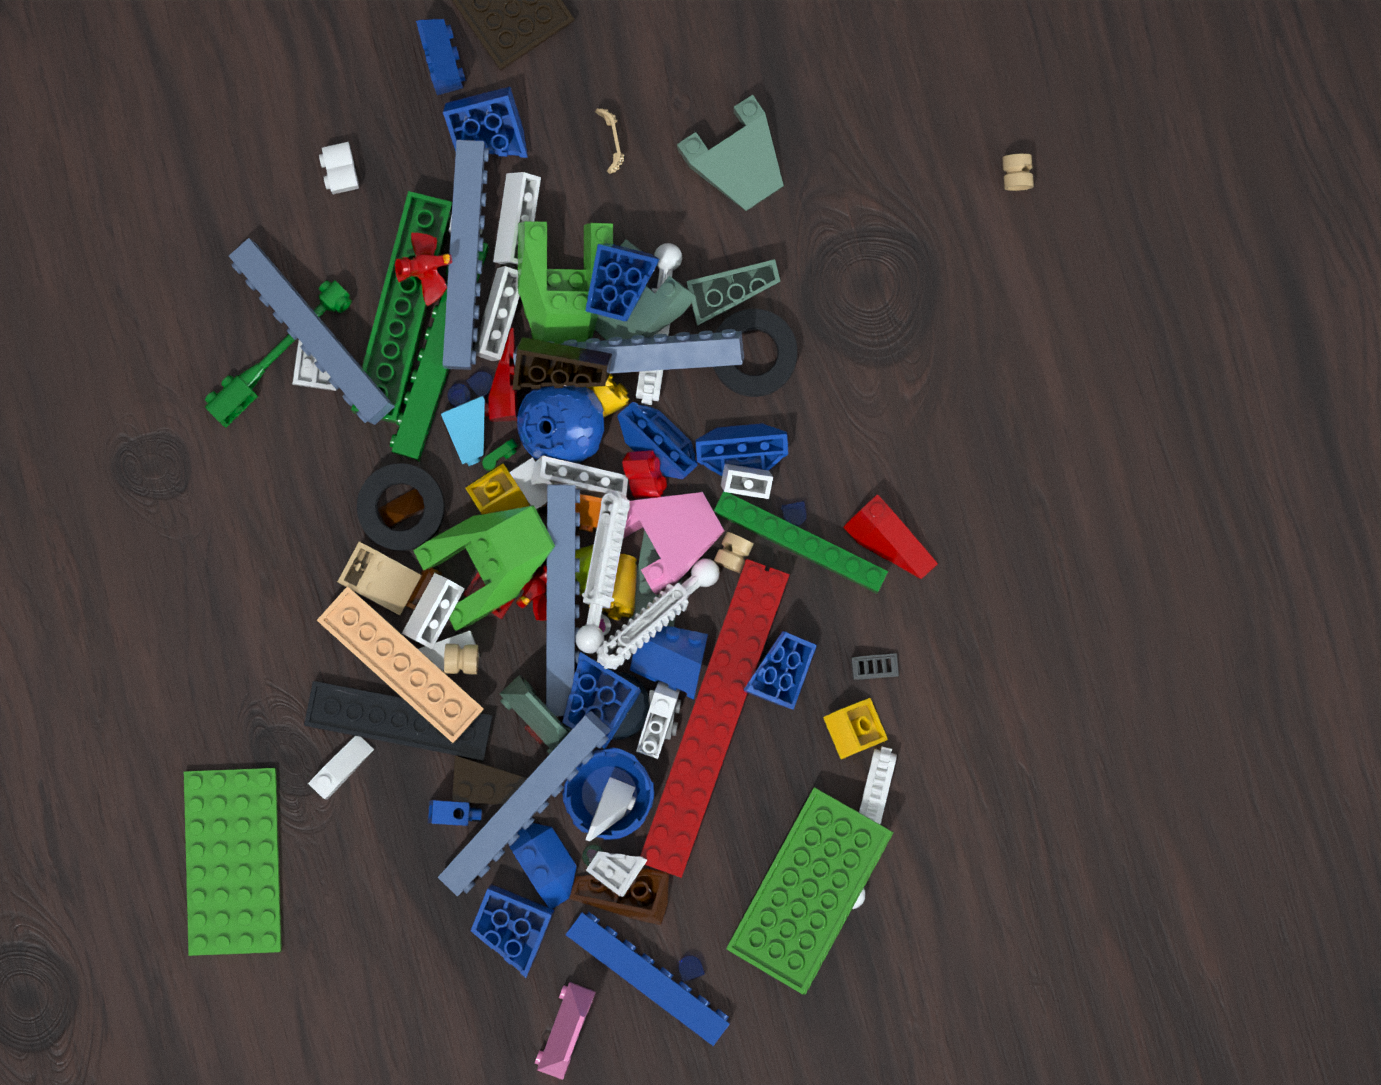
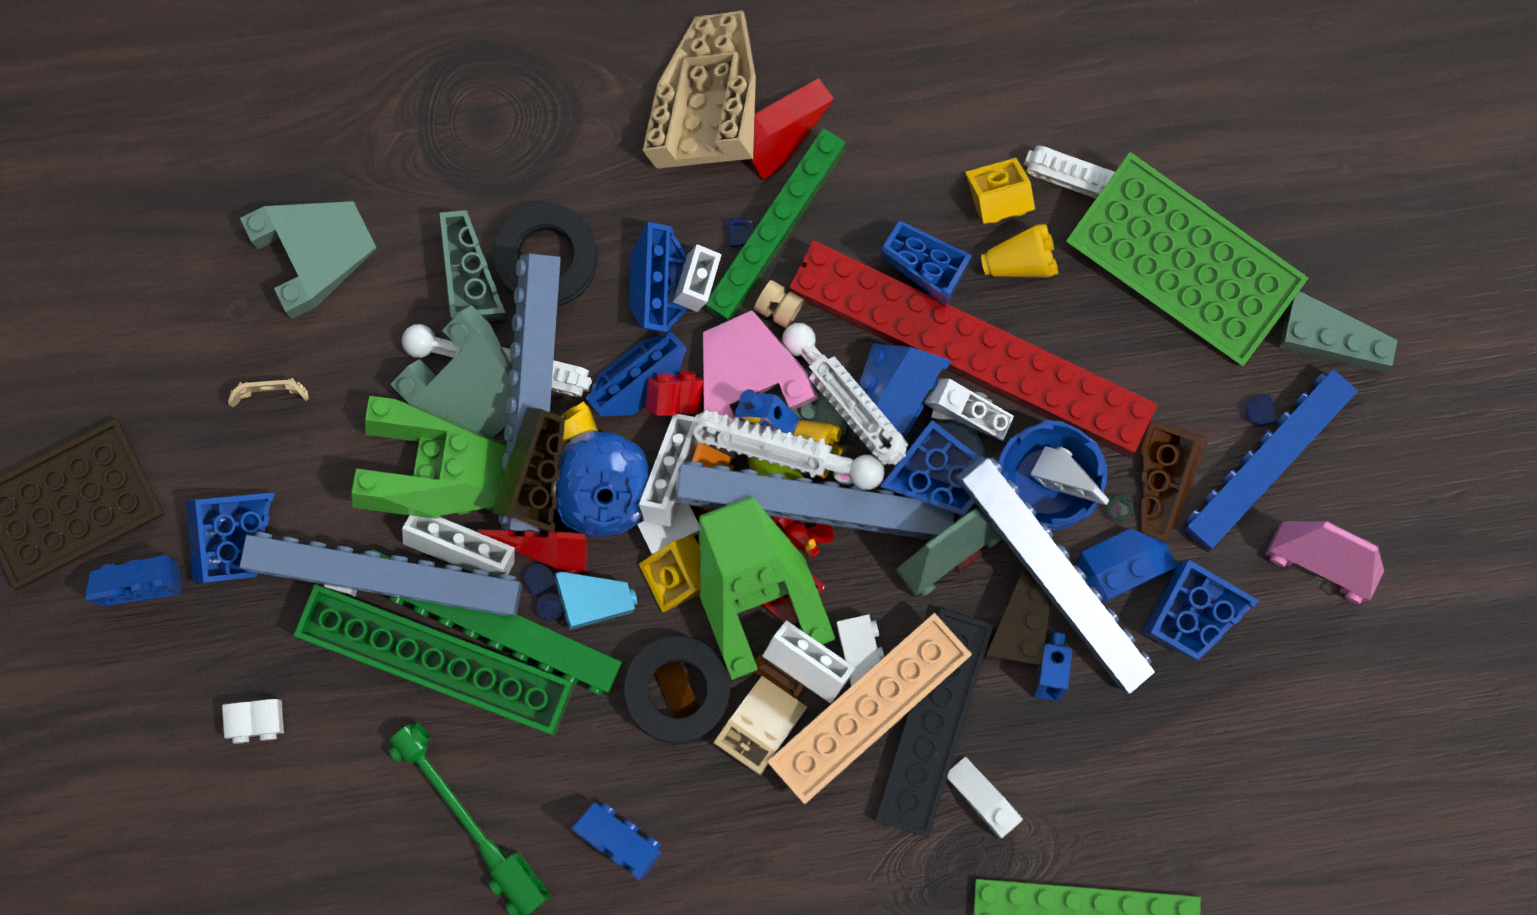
camera: 85 degrees left, 5 degrees down
(274, 475) = (619, 840): none -> blue wedge
(308, 374) = (492, 780): white wing -> none
(311, 331) = (448, 773): sand blue brick -> none
(424, 267) = (389, 622): red animal -> none
(458, 658) = (871, 632): tan wheel -> none
(506, 450) = (624, 557): green plate -> none
(517, 206) = (332, 509): white brick -> none
(616, 870) = (1141, 480): white wing -> none
(618, 280) = (440, 389): blue wedge -> none
(634, 546) = (767, 411): none -> blue torso
(761, 1018) = (1332, 335): none -> sand green wedge
(798, 753) = (1023, 255): none -> yellow cone
(856, 669) = (930, 182): dark grey slope -> none
(905, 468) = (705, 97): none -> tan wedge

